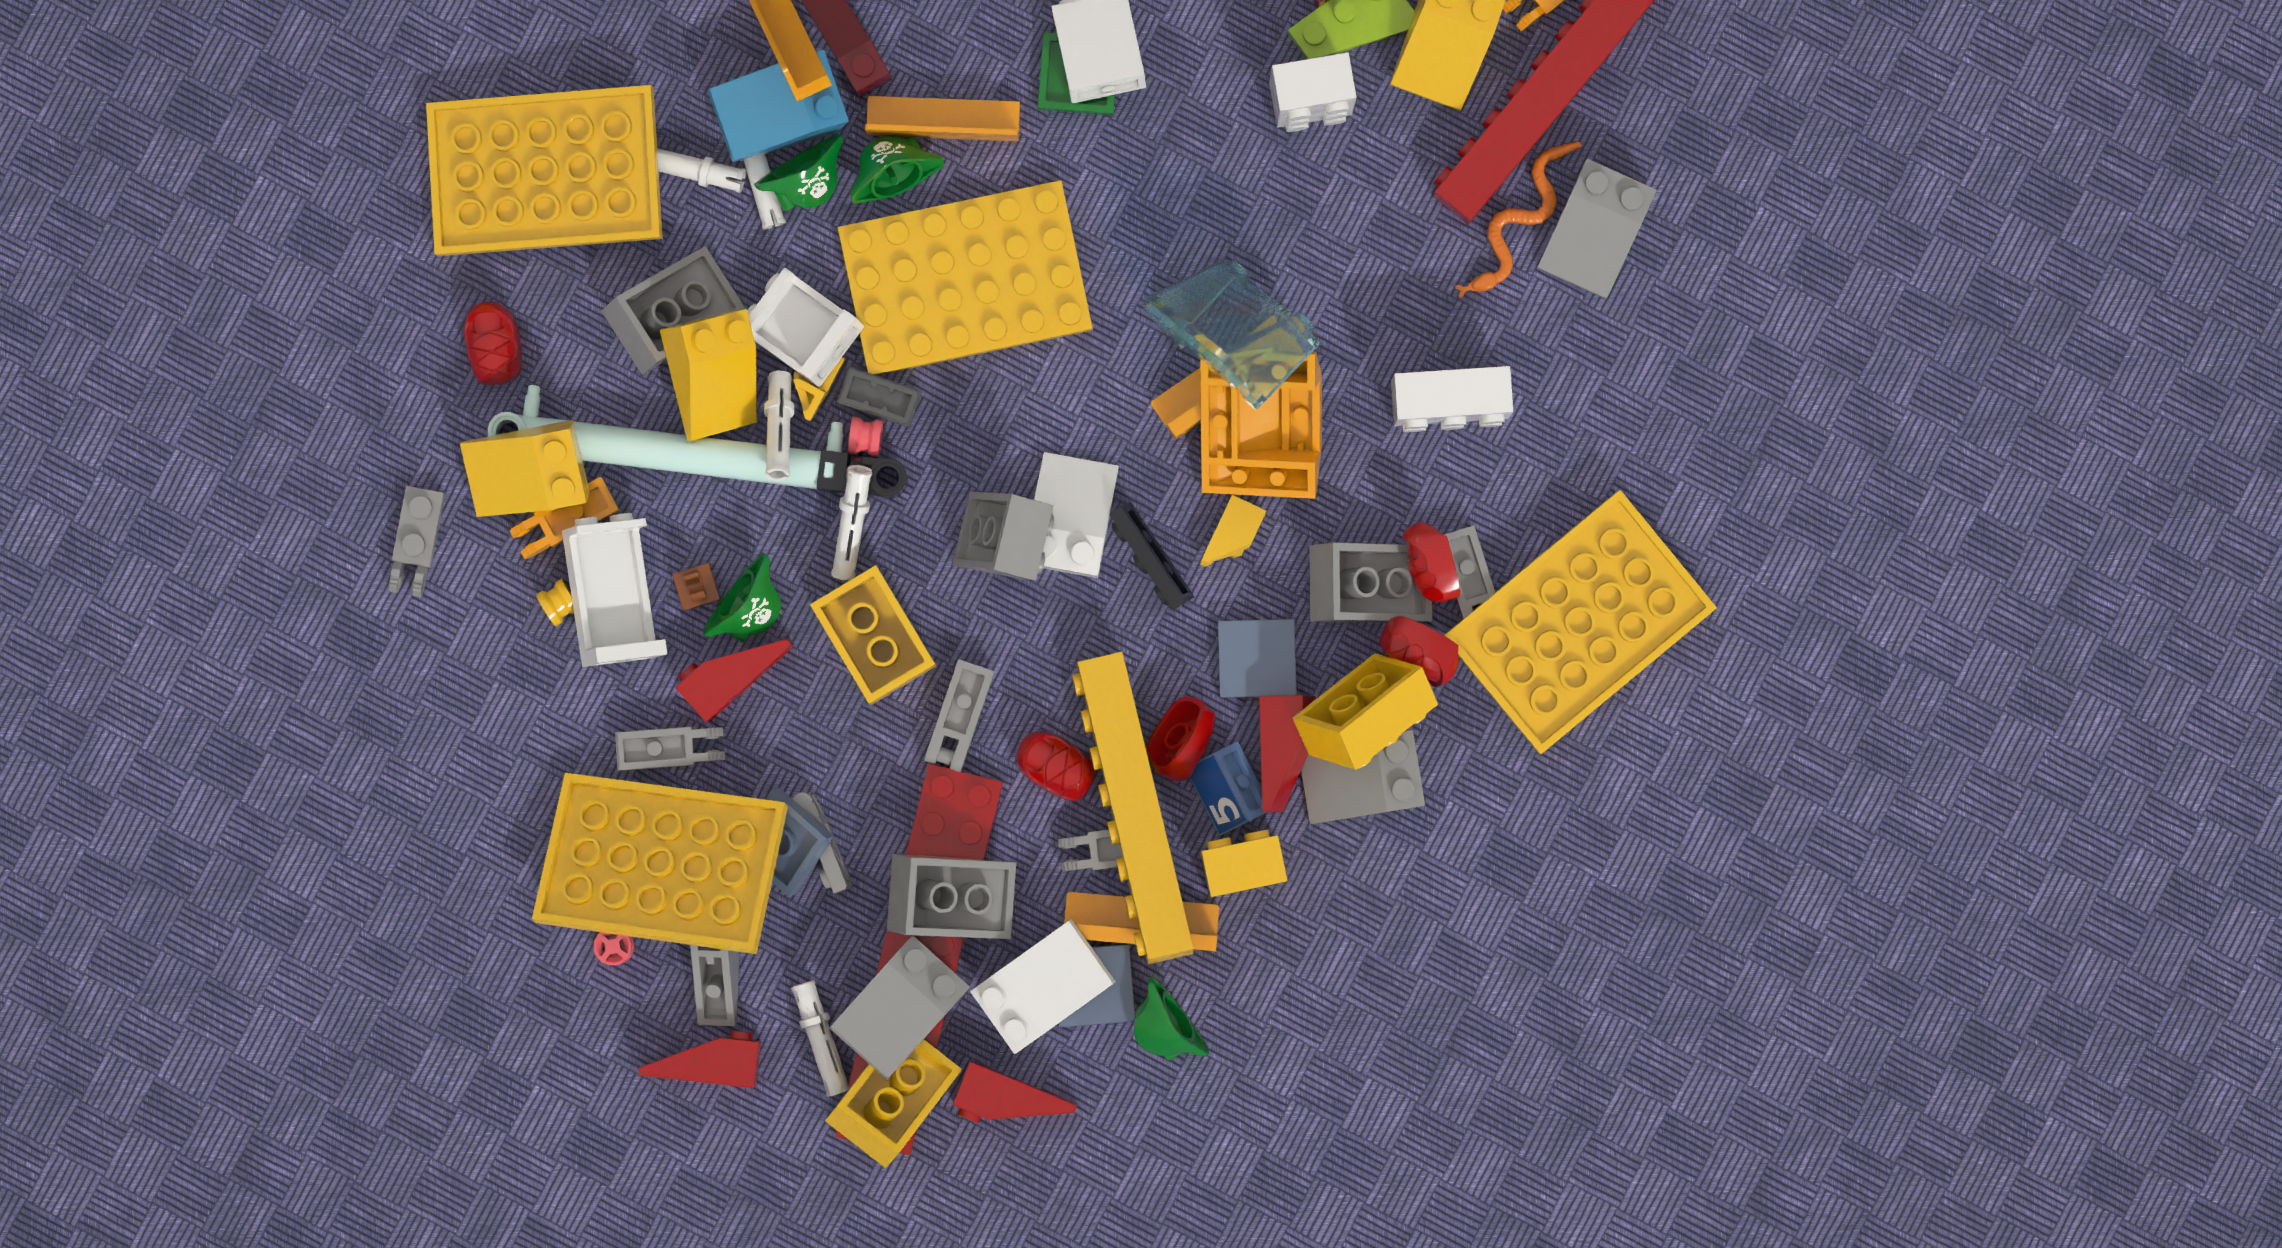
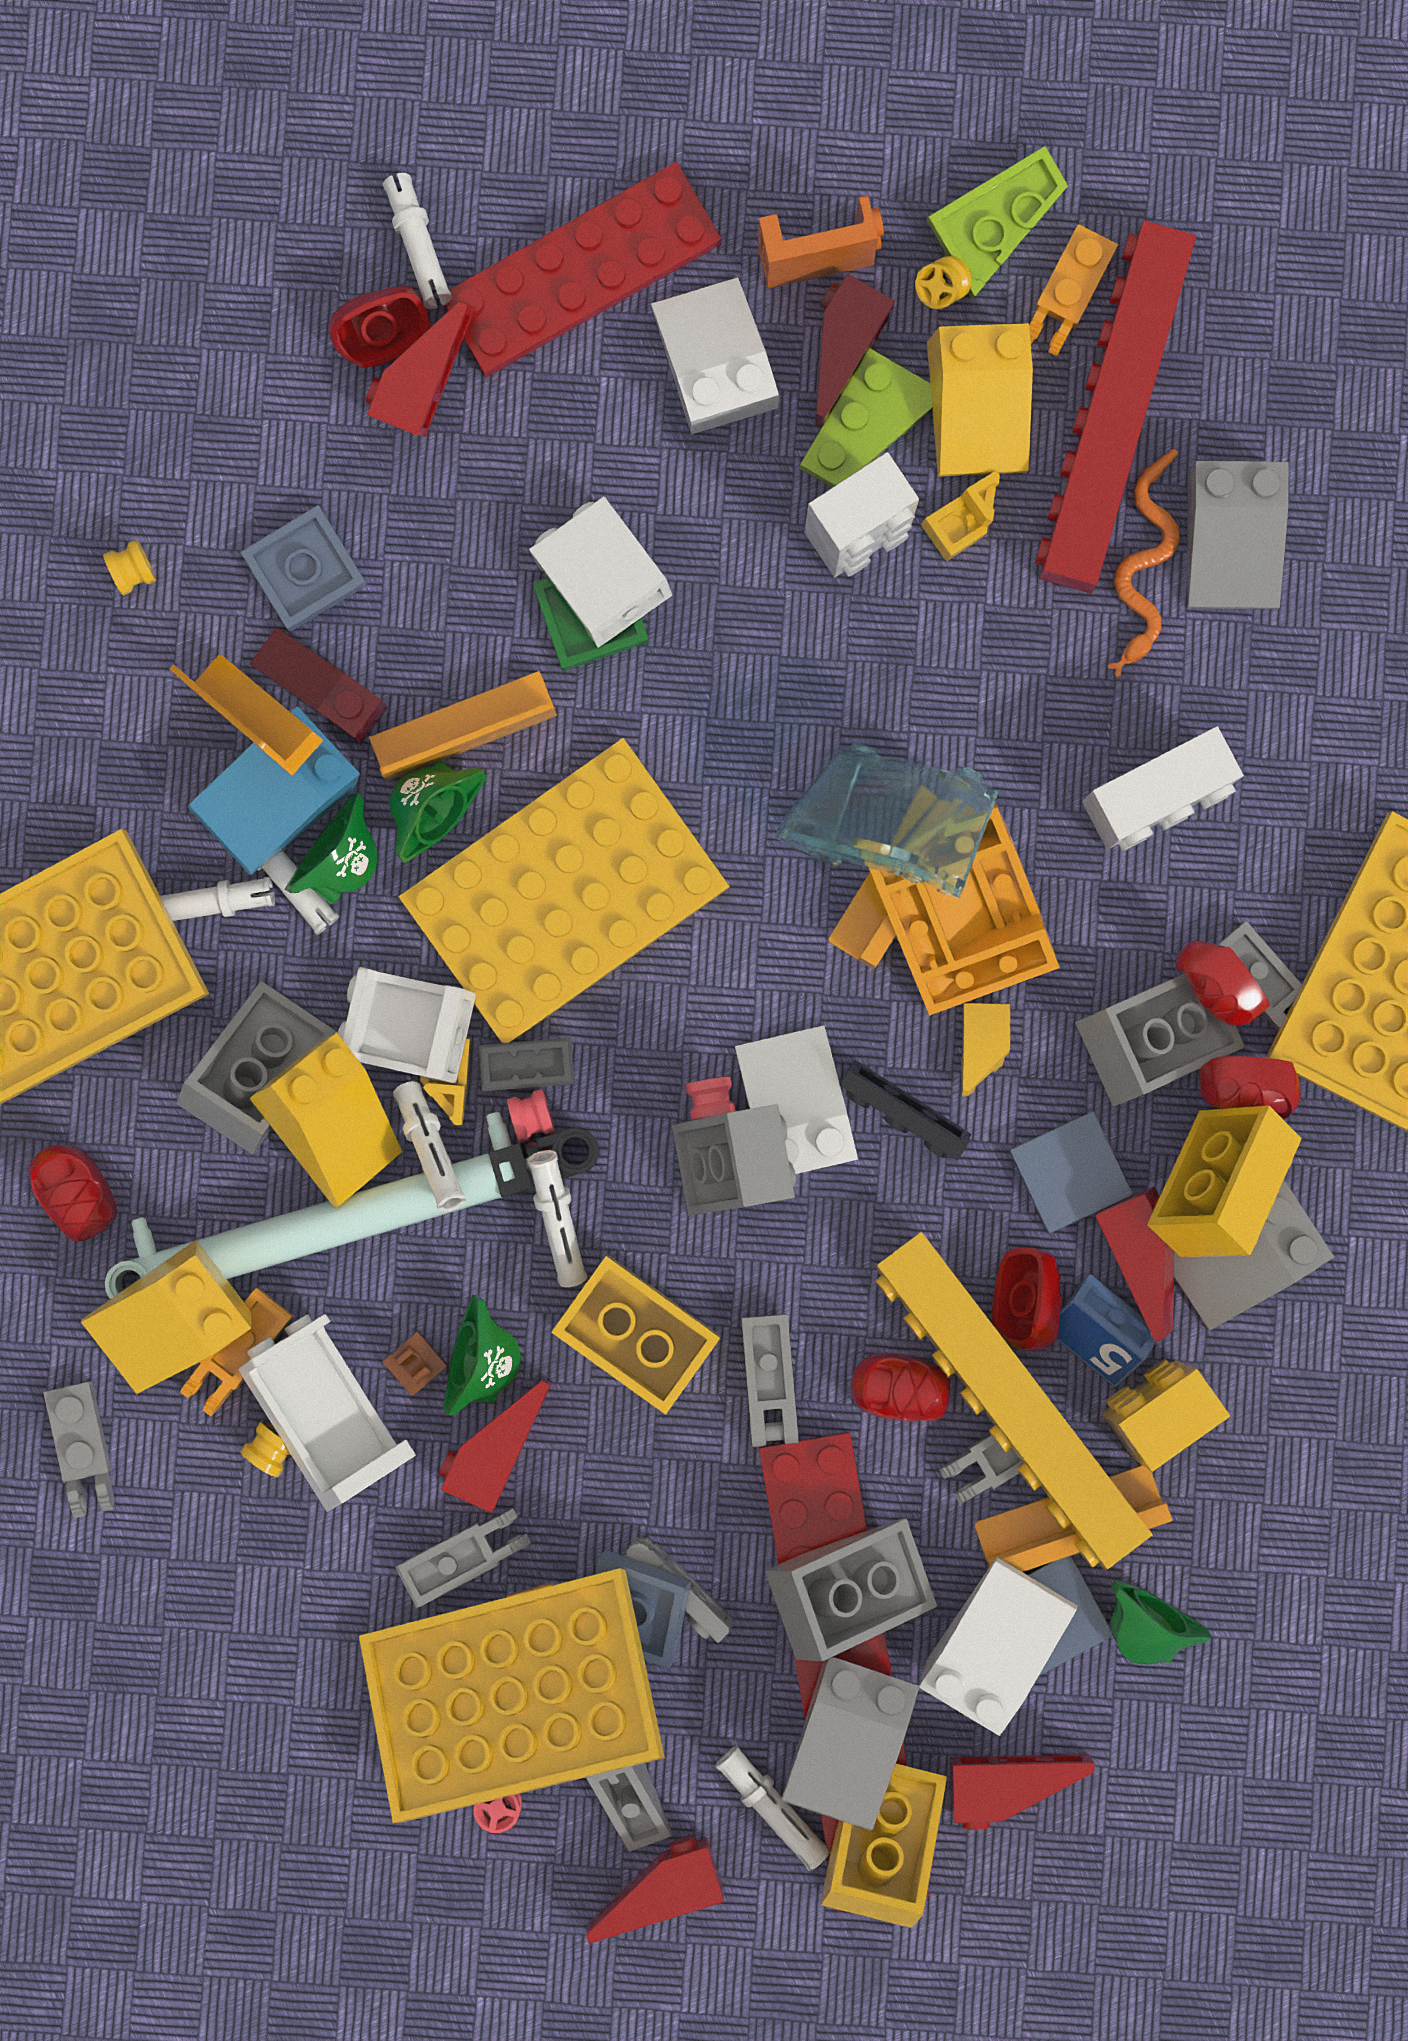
camera: 20 degrees left, 0 degrees up
(1007, 480) = (710, 1097): none -> coral wheel
(1394, 126) = (963, 519): none -> yellow slope

